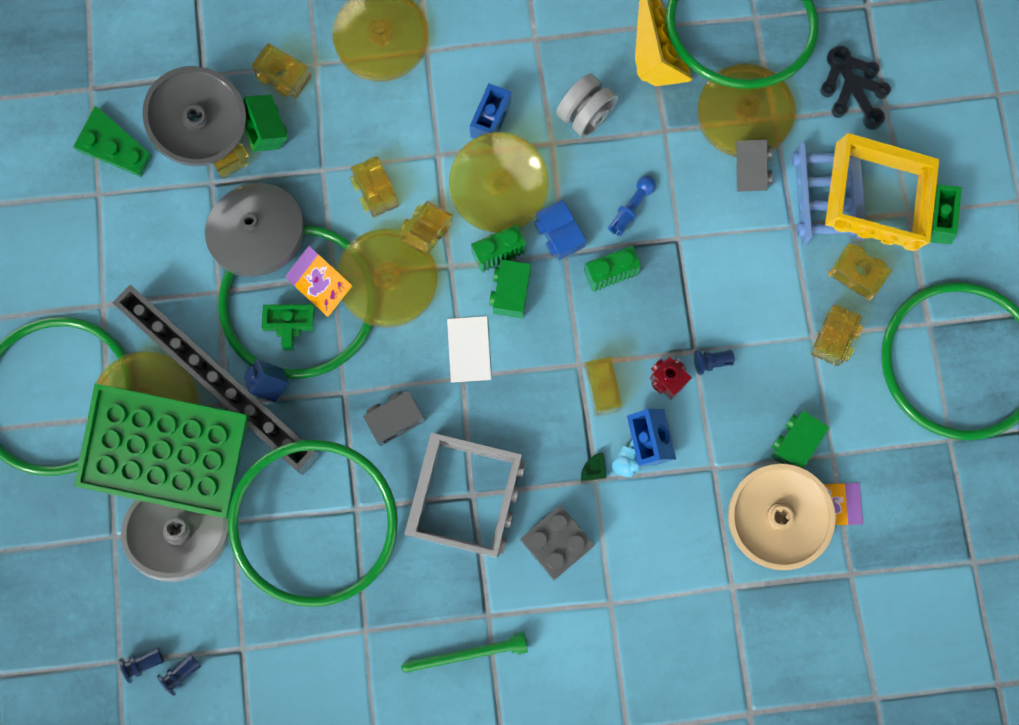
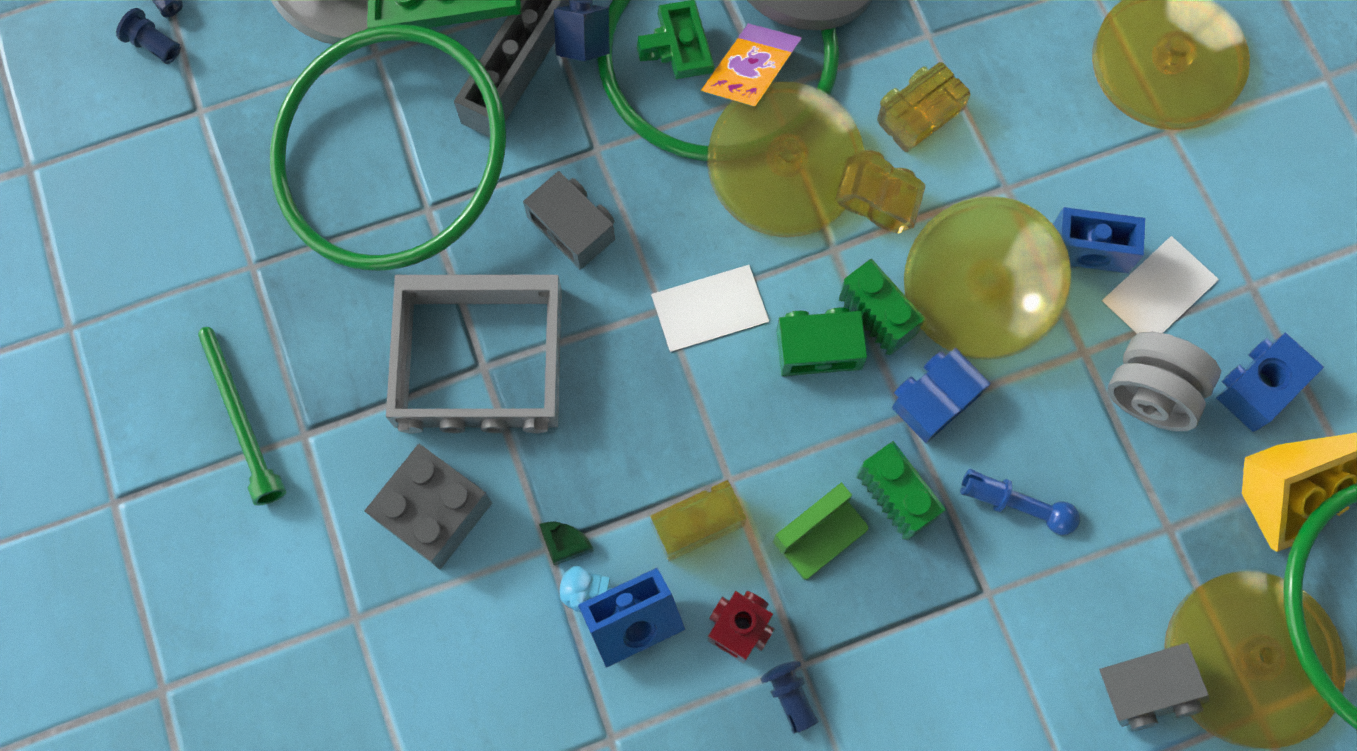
camera: 75 degrees right, 5 degrees down
(527, 90) = (1160, 289): none -> white sticker
(596, 37) = (1287, 368): none -> blue brick
(623, 319) = (821, 532): none -> bright green panel

